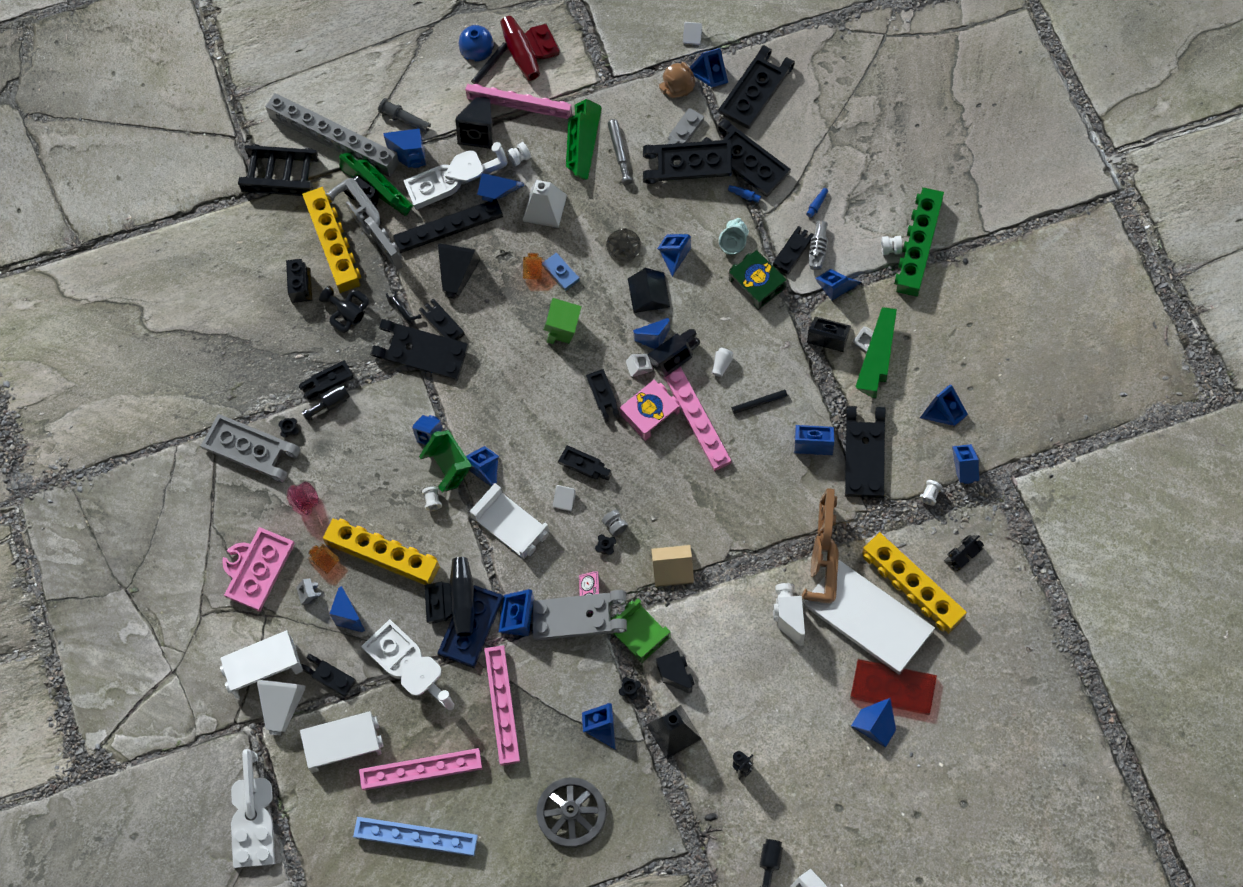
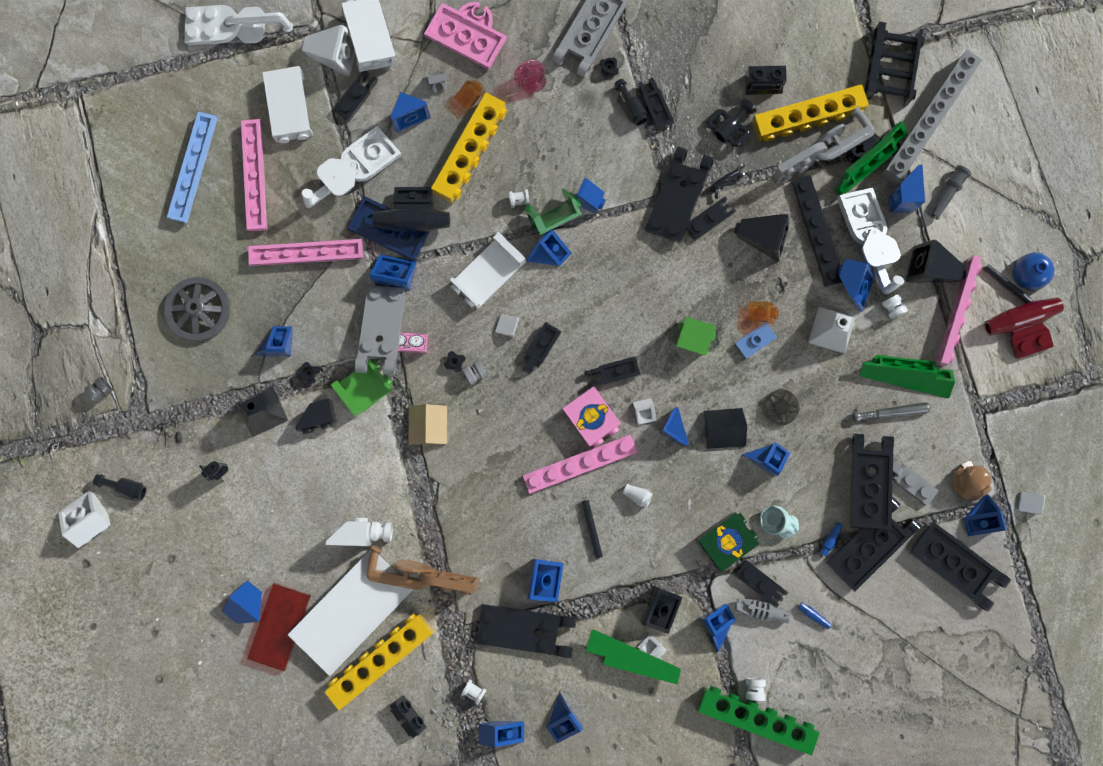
camera: 90 degrees right, 15 degrees up
(674, 352) = (651, 447): black hinge -> none

